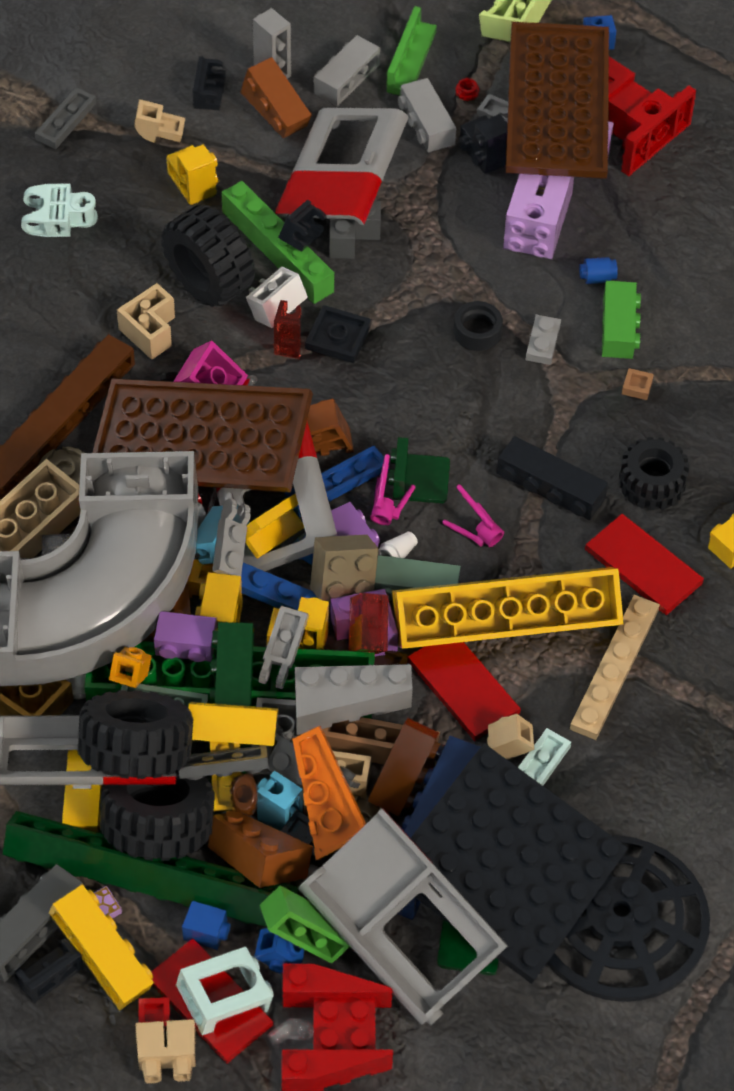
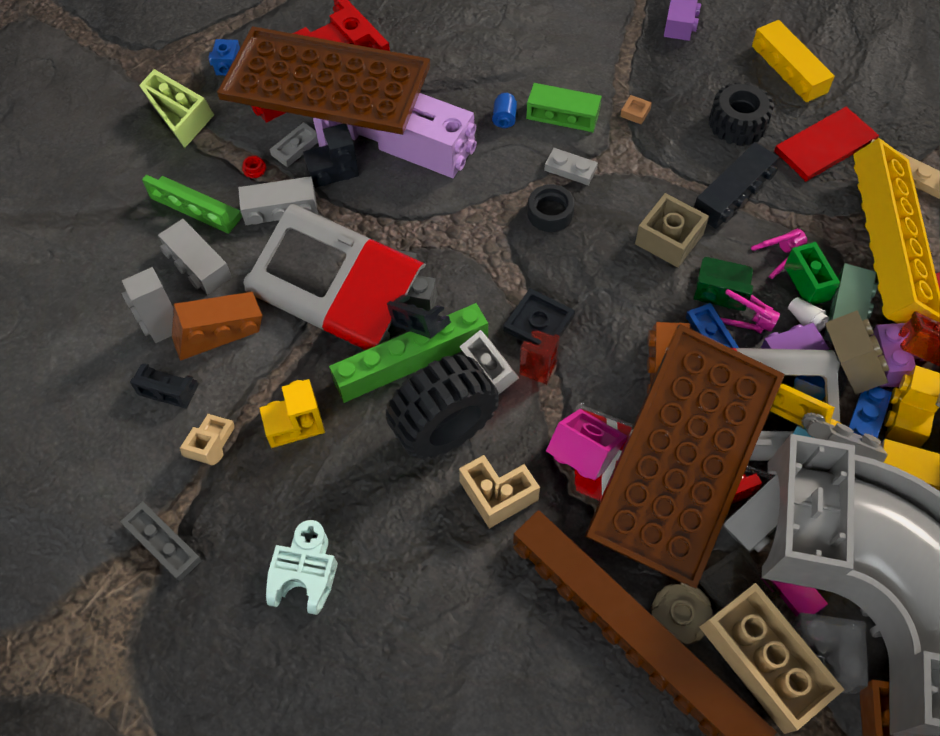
camera: 75 degrees left, 5 degrees up
(443, 540) = (811, 273): none -> green brick
(469, 421) = (671, 230): none -> dark tan brick

